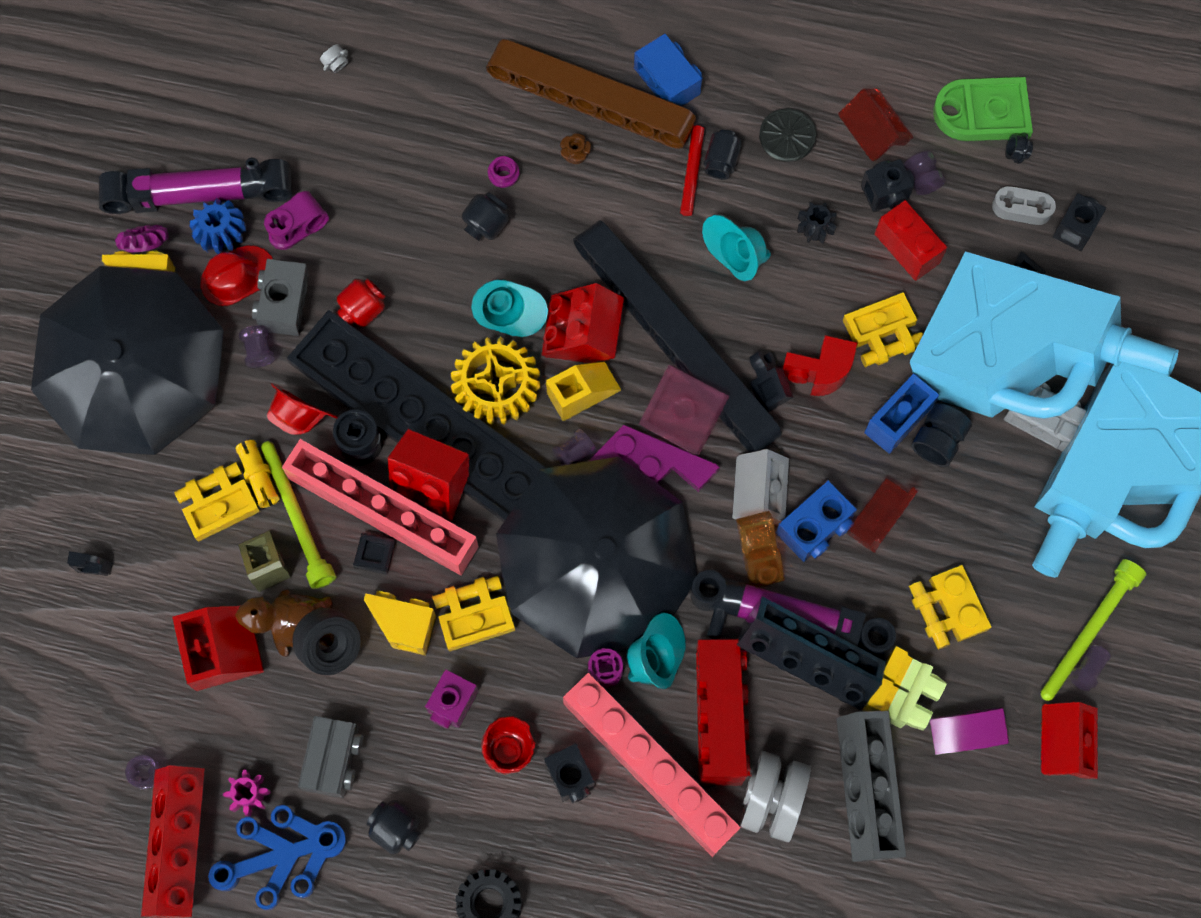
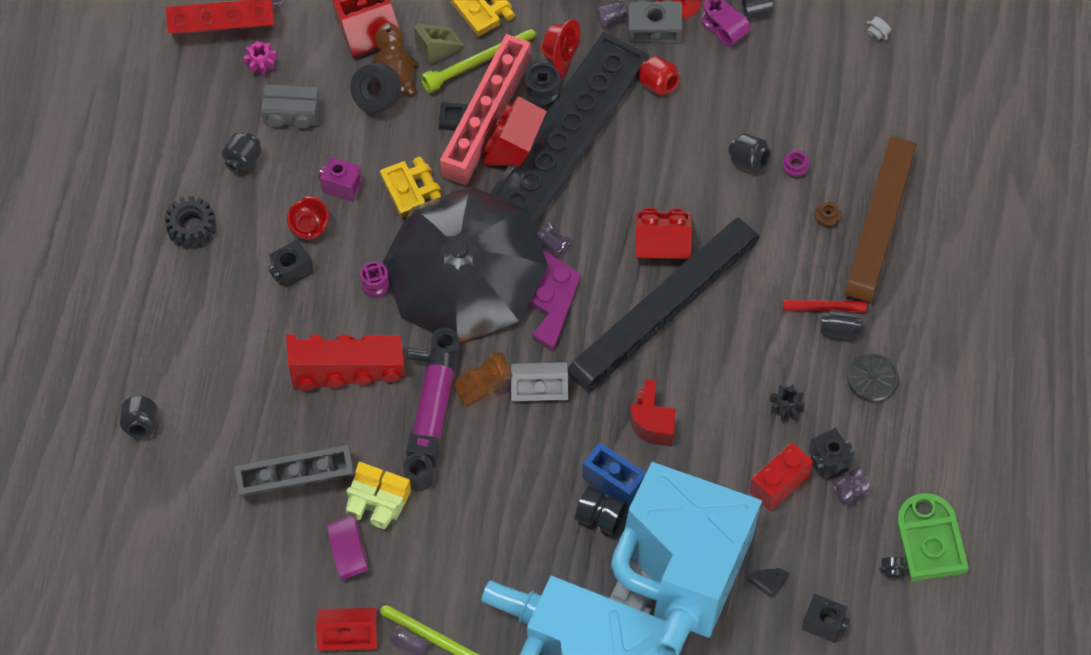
camera: 85 degrees right, 10 degrees down
(257, 473) = (508, 27): yellow pin -> none
(283, 855) = (217, 88): blue plant -> none
(403, 623) = (396, 138): yellow slope -> none
(508, 378) = (615, 167): yellow gear -> none
(509, 308) = (668, 176): teal piece -> none
(581, 388) = (605, 236): yellow slope -> none
(650, 764) = (299, 316): coral brick -> none
(658, 652) = (391, 314): teal piece -> none
(667, 71) = (912, 274): blue brick -> none
(683, 410) = (596, 312): clear pink tile -> none
(735, 247) = (753, 345): teal piece -> none
(771, 383) = (630, 377): black plate -> none
(775, 796) = (279, 398): light grey wheel -> none
(810, 517) = (518, 416): blue brick -> none
(811, 653) = (396, 414): black brick -> none
(874, 123) = (897, 446): clear red panel -> none
(881, 320) = (699, 455): yellow plate -> none
(881, 515) = (526, 473): clear red panel -> none
(958, 602) = (455, 539): yellow plate -> none
(1023, 205) = (830, 574): light grey beam -> none

